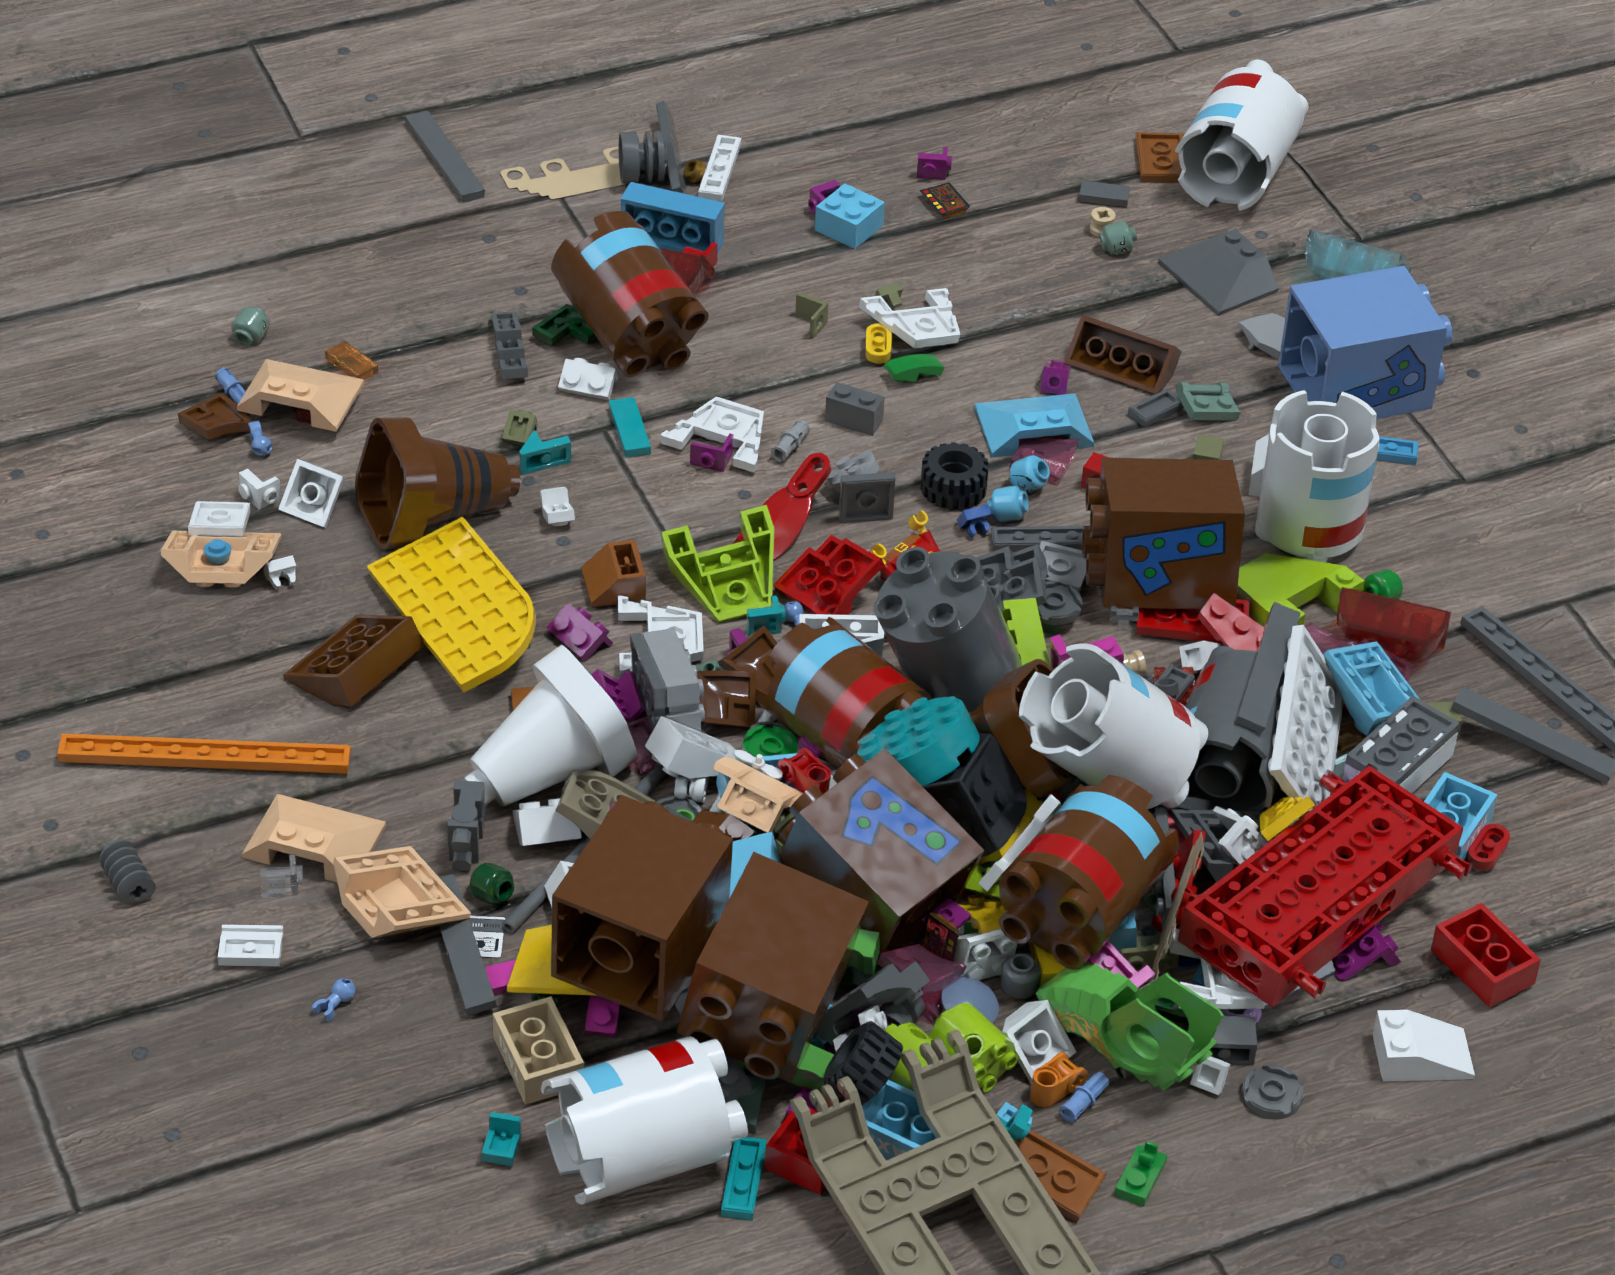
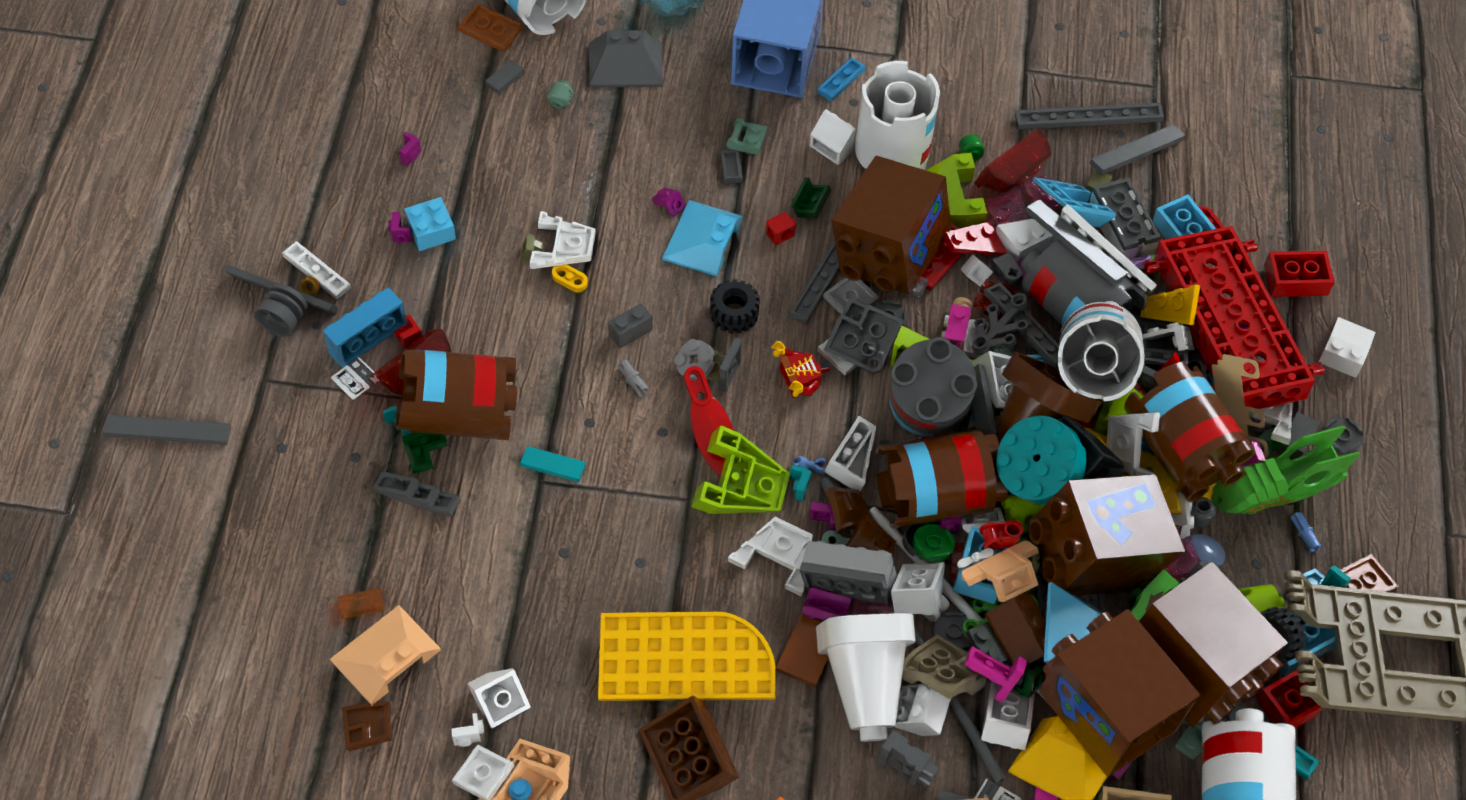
camera: 60 degrees left, 15 degrees up
(233, 388) = (340, 696): medium blue axle -> none
(250, 325) = (278, 651): sand green head -> none
(260, 444) = (417, 707): medium blue arm -> none
(280, 568) = (569, 749): white tile -> none
(425, 482) = (558, 626): reddish brown cone -> none
(491, 884) = (961, 771): dark green head -> none
(519, 427) = (514, 531): olive bracket -> none
(542, 455) = (549, 533): teal slope -> none
(556, 506) = (614, 550): white bracket -> none
(567, 182) = (255, 369): tan piece -> none
(577, 632) = (746, 598): magenta bracket -> none
(587, 378) = (489, 464): white bracket -> none
(614, 573) = (708, 548): dark orange slope -> none
(710, 456) = (622, 432): magenta bracket -> none
(715, 423) = (593, 404): white wing -> none
(814, 310) = (513, 294): olive bracket -> none
(829, 577) = (792, 425): red slope -> none
(910, 366) = (608, 270): green slope -> none
(945, 200) = (446, 162): piece -> none
(975, 517) = (777, 317): blue tile -> none
(988, 1046) = (1252, 567): lime cylinder -> none
(1008, 504) = (777, 292): medium azure head -> none
(1029, 473) = (759, 266): medium azure head -> none
(1036, 1035) = (1251, 530): white slope -> none
(1055, 452) = (743, 249): clear pink plate -> none
(1055, 1080) = (1287, 536): orange piece -> none
(1100, 217) = (533, 97): tan wheel -> none
(1122, 355) = (675, 155): reddish brown slope -> none
(1141, 1174) = (1376, 537): green plate -> none
(1208, 448) = (798, 165): olive brick -> none
(1264, 333) = (704, 71): light grey slope -> none

